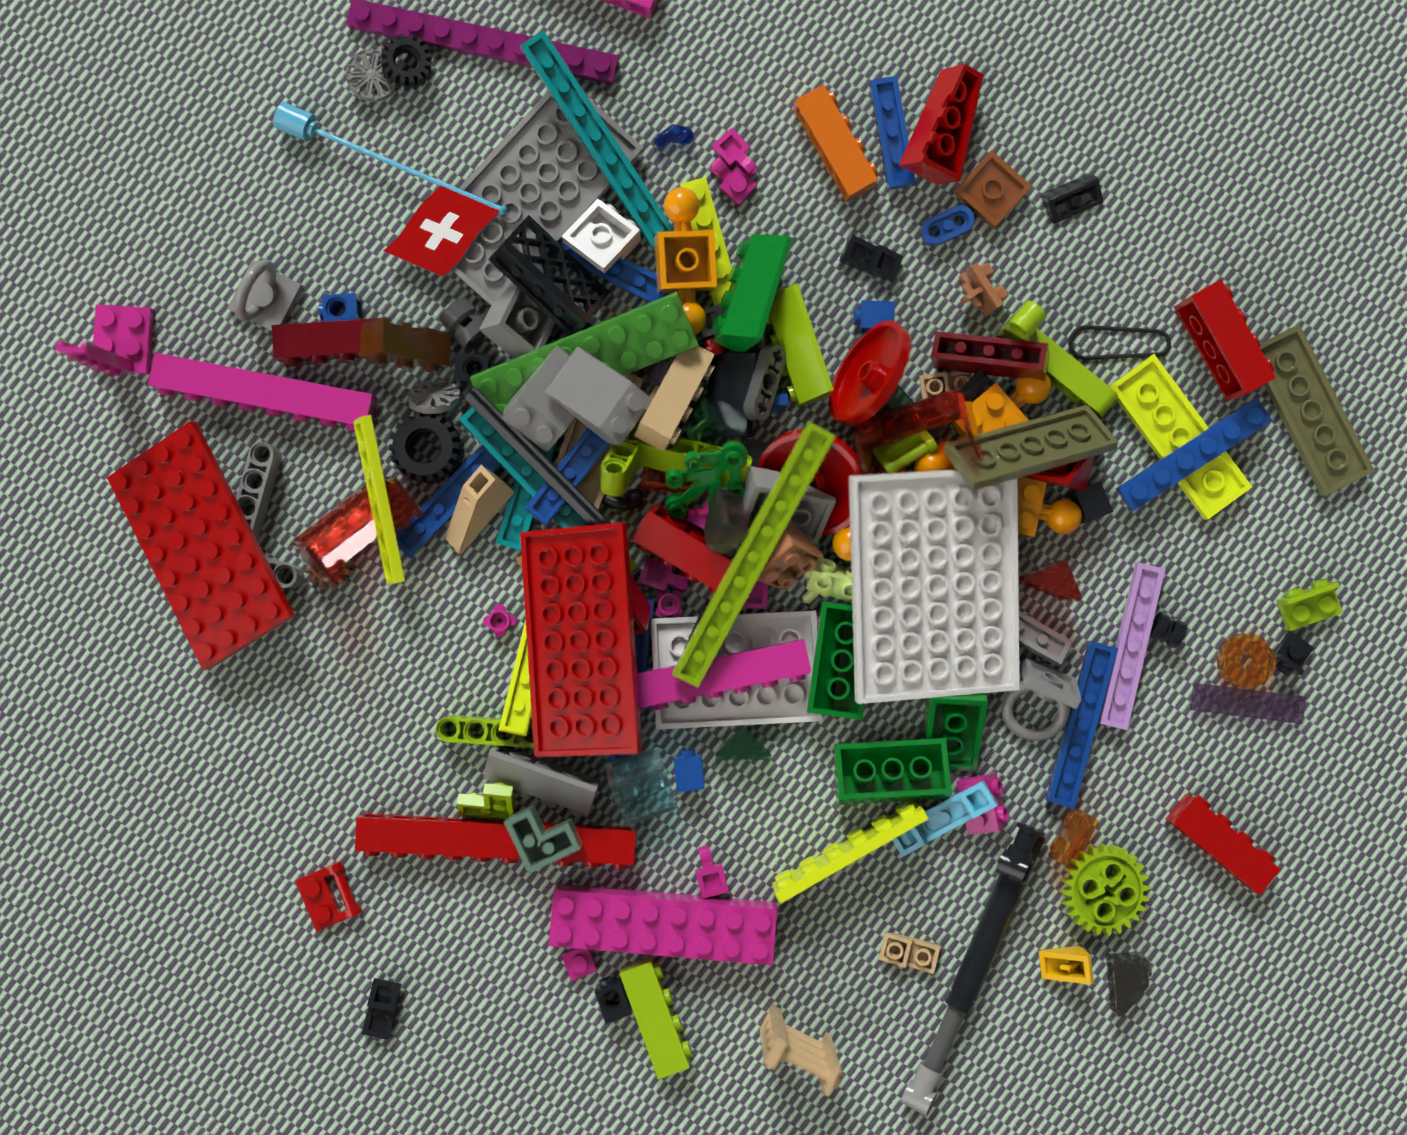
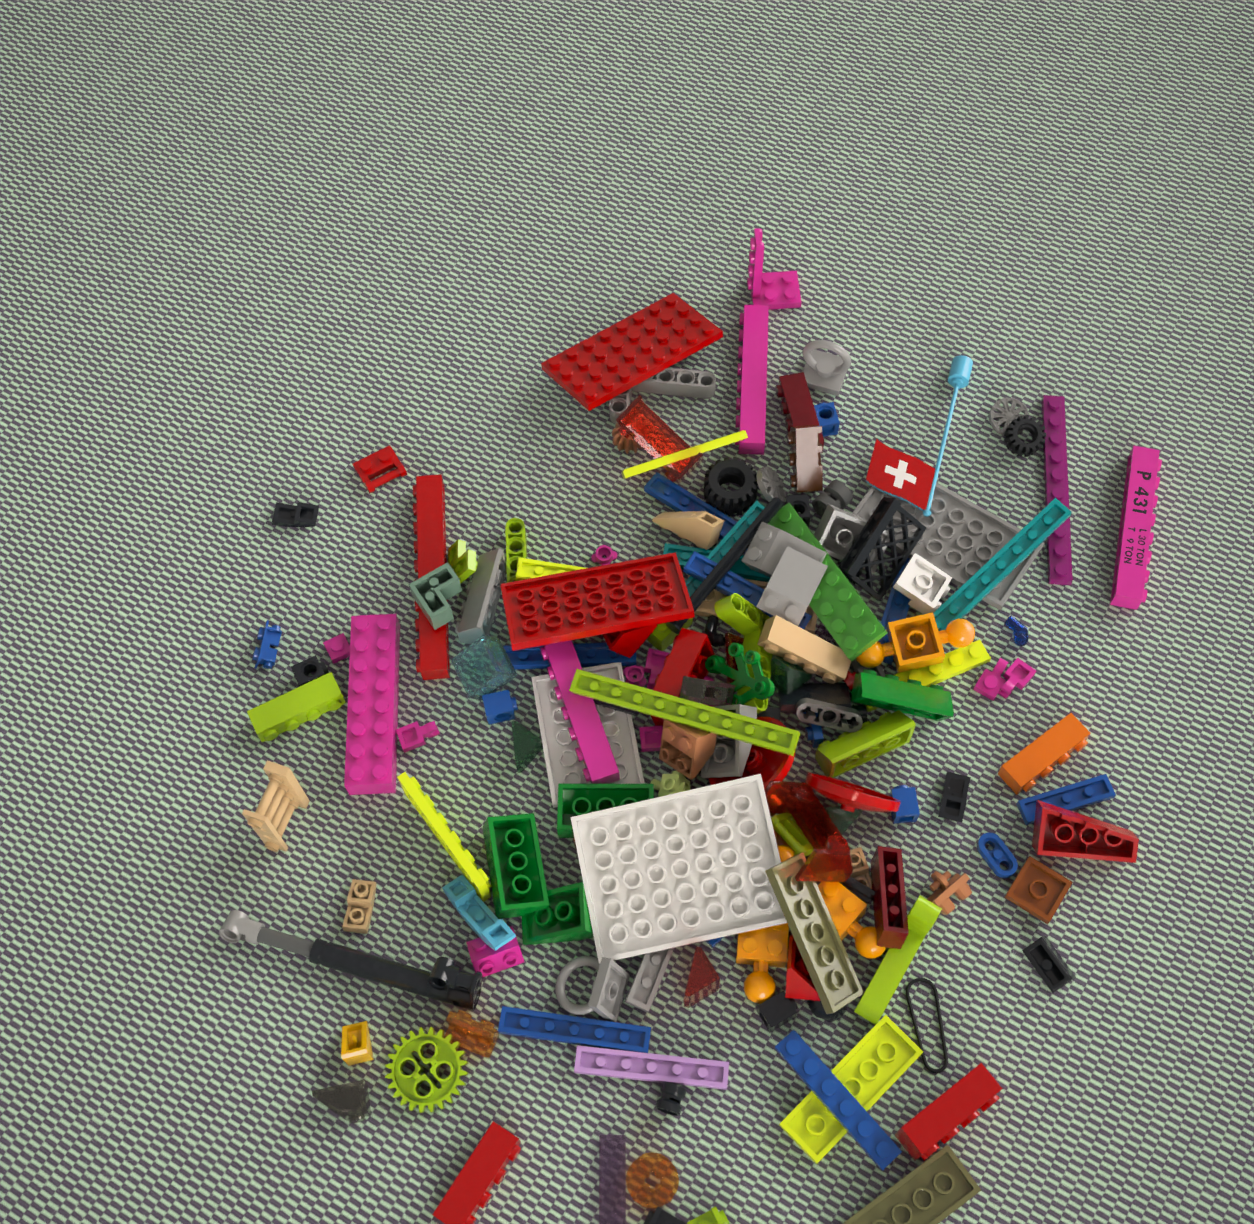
camera: 85 degrees right, 25 degrees down
(555, 1050) = (267, 637): none -> blue hinge

